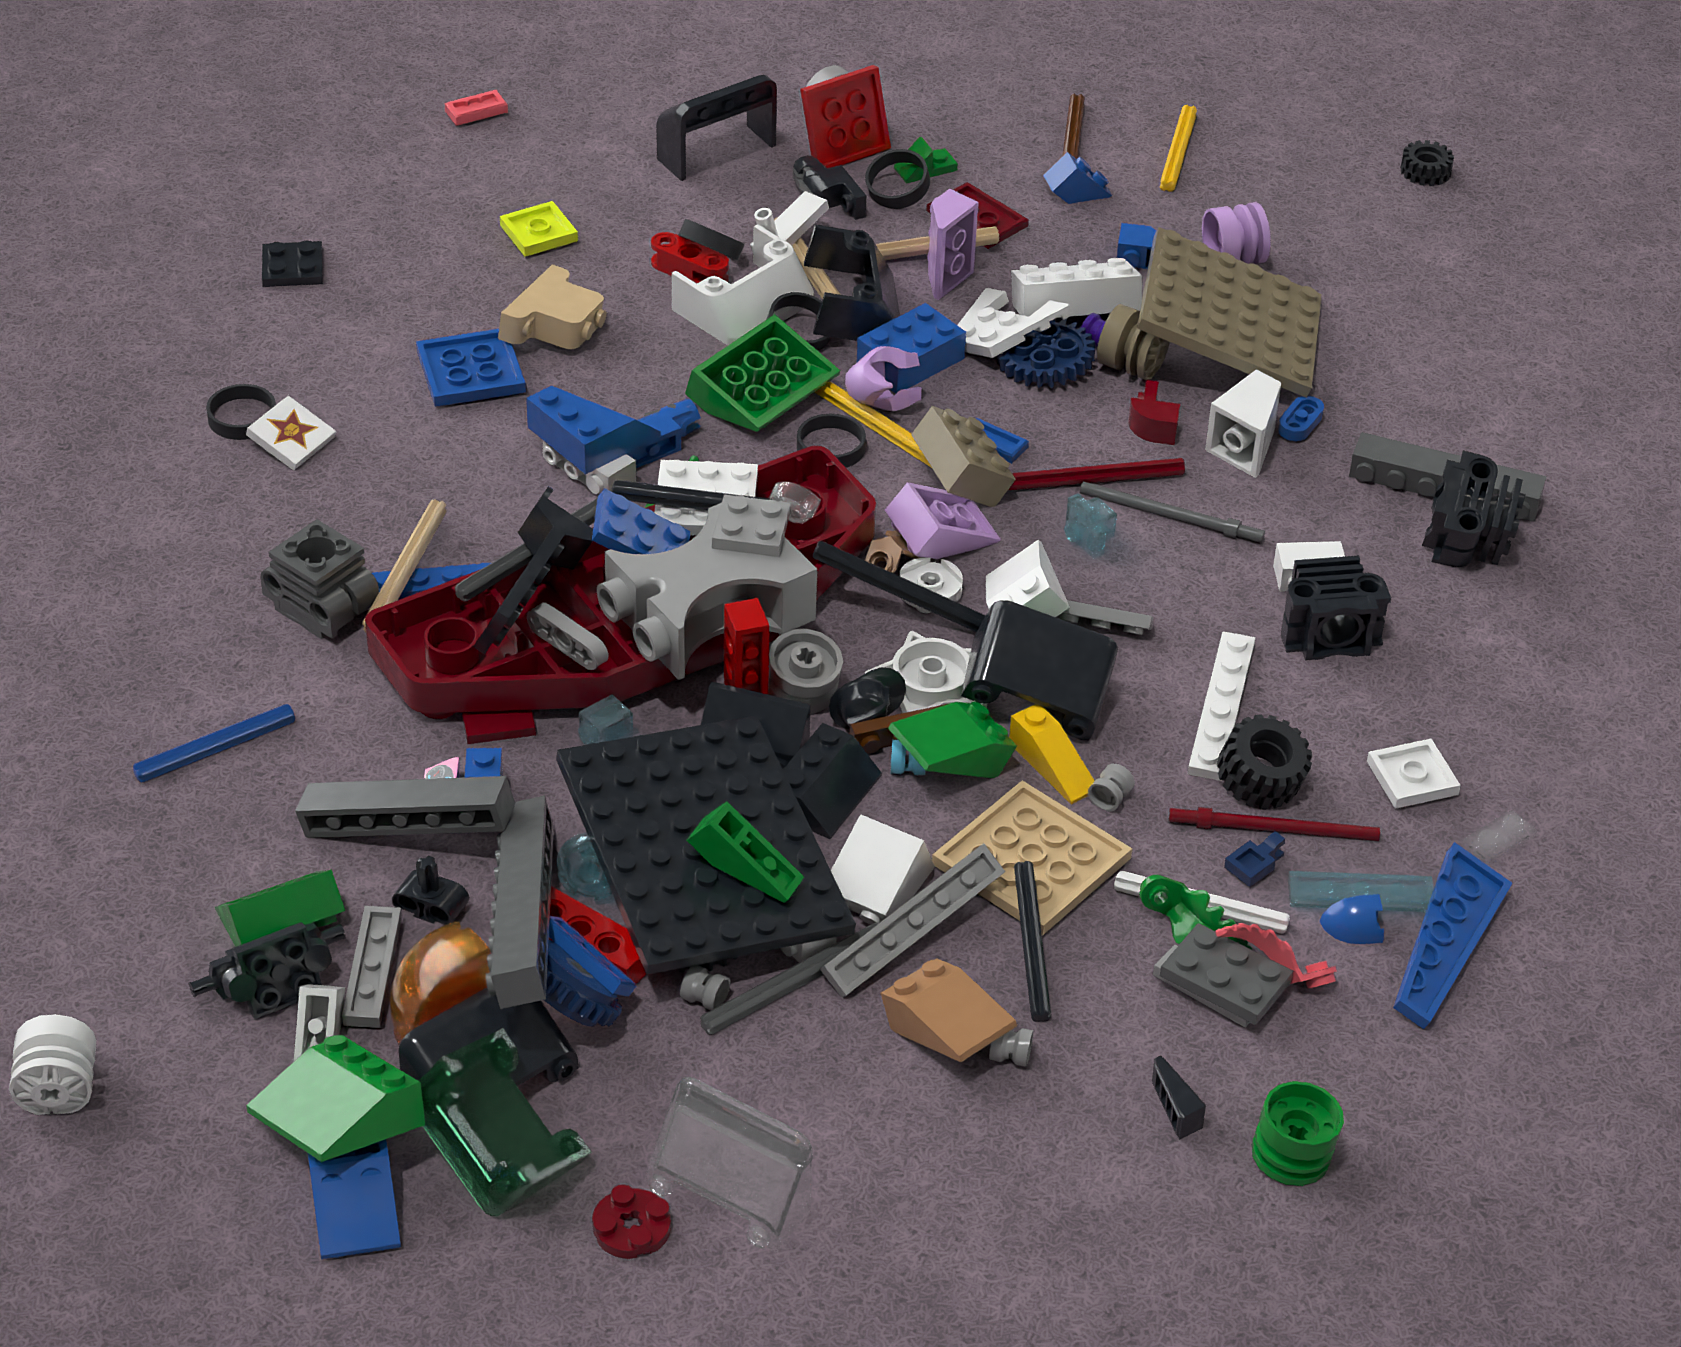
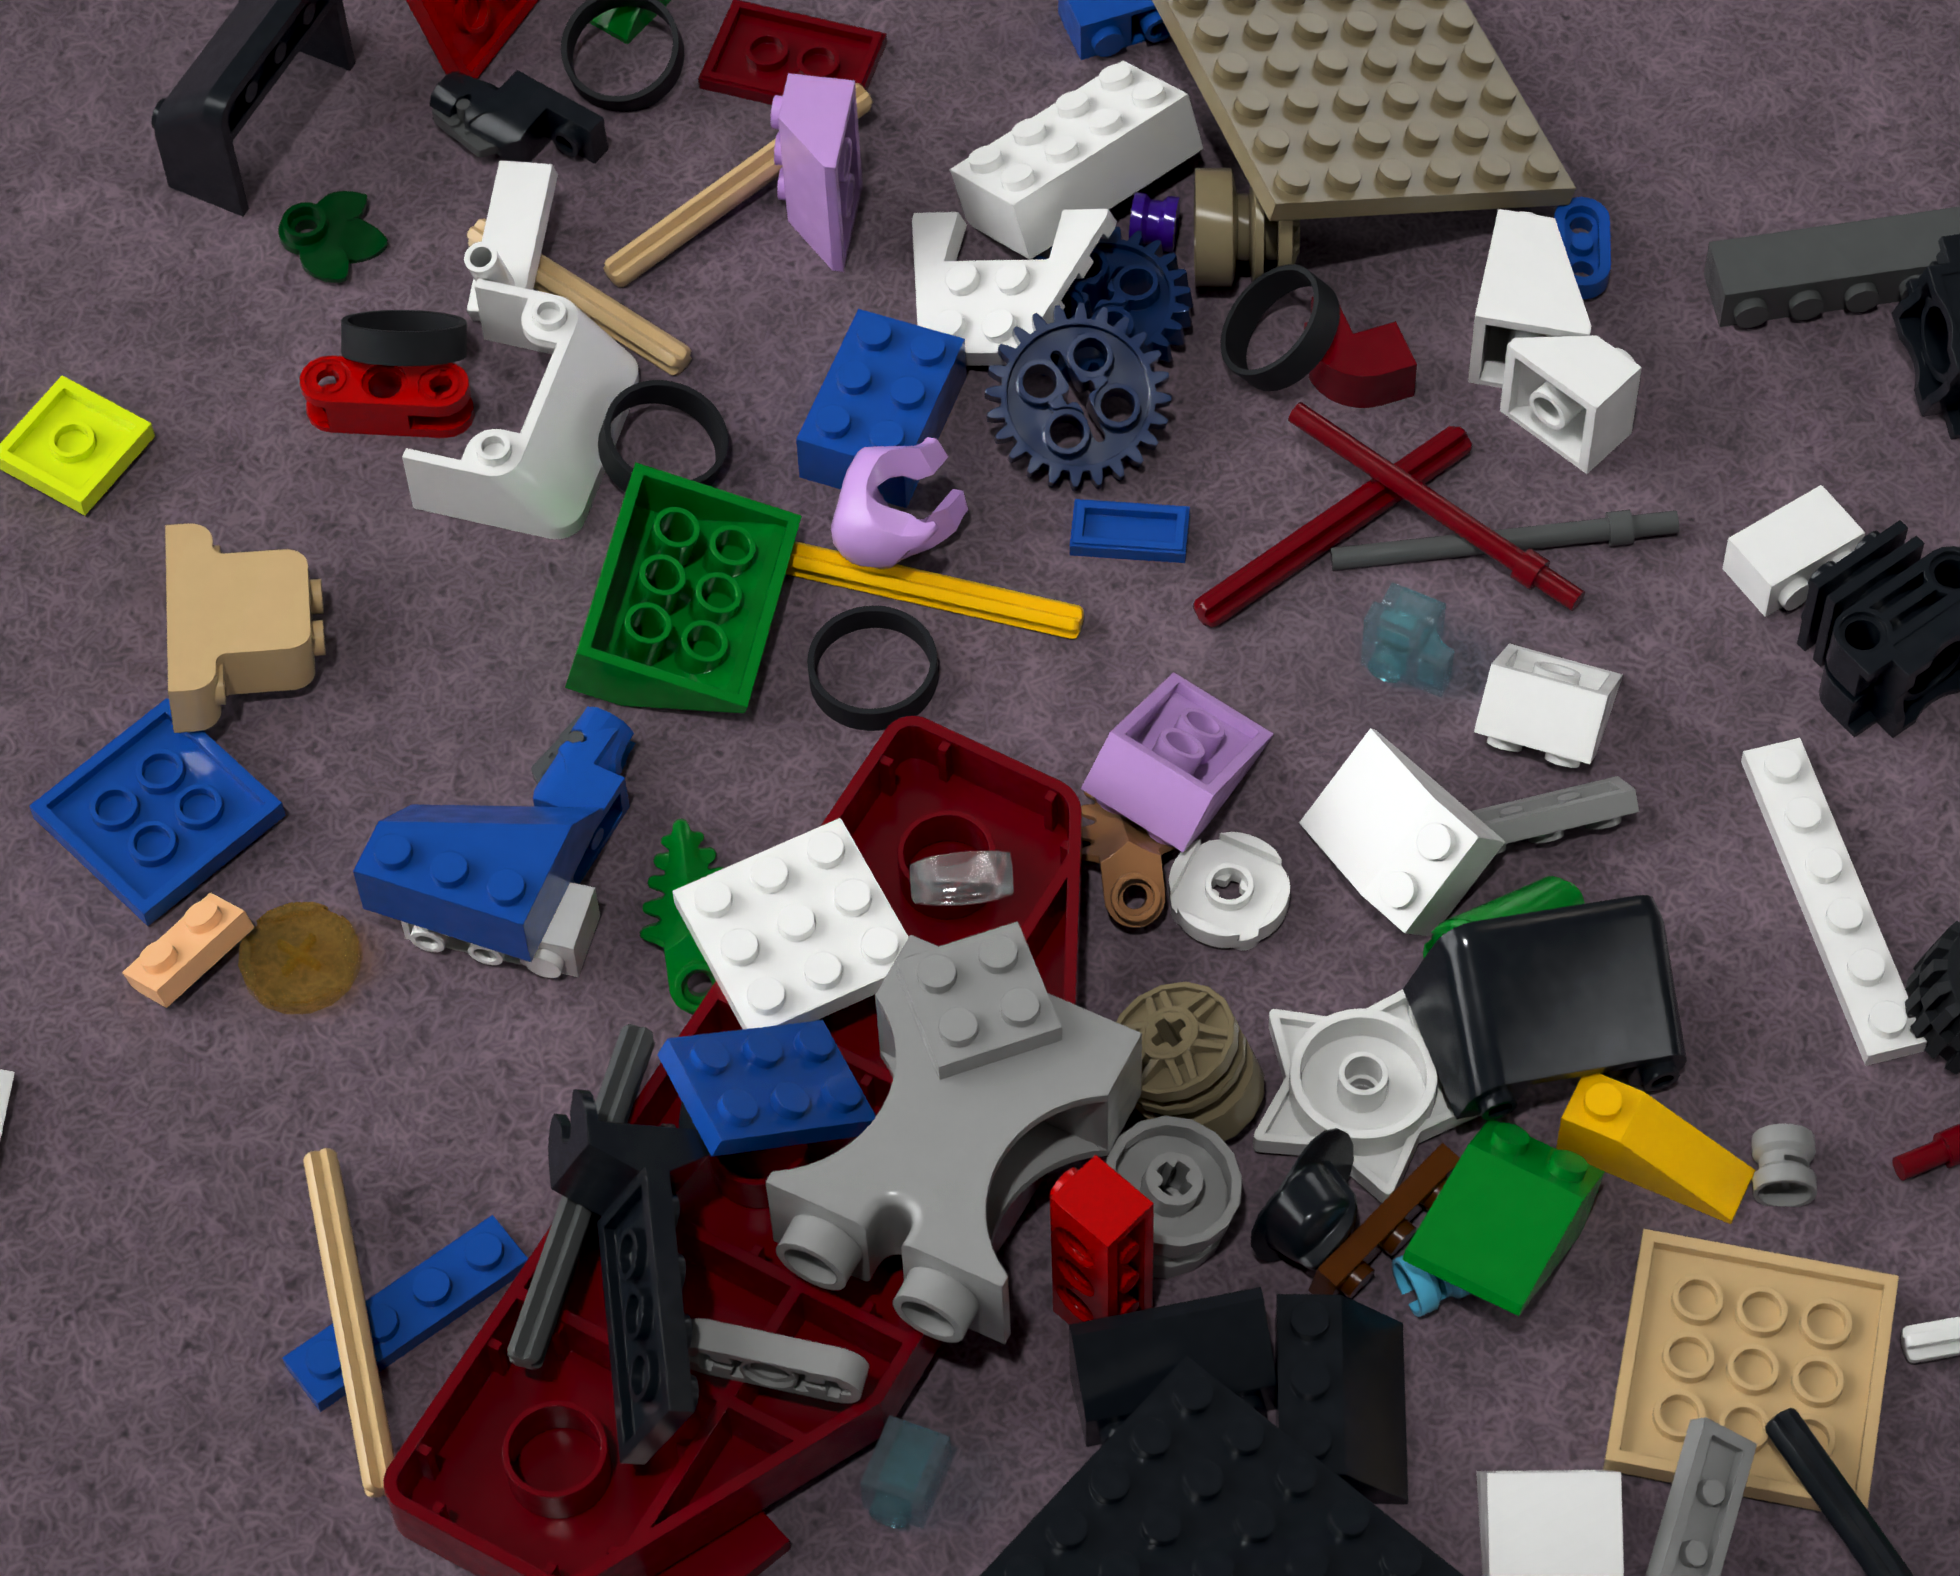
camera: 25 degrees left, 15 degrees up
(319, 579) = (256, 1482): dark grey piece -> none
(434, 420) = (188, 949): none -> light nougat plate
(491, 443) = (299, 958): none -> clear yellow tile
(670, 495) = (796, 960): black axle -> none
(713, 199) = (336, 235): none -> dark green plate
(855, 623) = (1194, 1058): none -> dark tan wheel
(871, 302) = (780, 357): black windscreen -> none
(898, 586) = (1219, 940): black axle -> none
(963, 456) = (1129, 607): dark tan brick -> none
(975, 377) = (1124, 375): none -> dark blue gear
(1122, 386) = (1309, 347): none -> black tyre
(1137, 575) = (1546, 705): none -> white slope
(1171, 520) = (1526, 566): none -> dark red bar
(1244, 462) = (1571, 394): none -> white slope

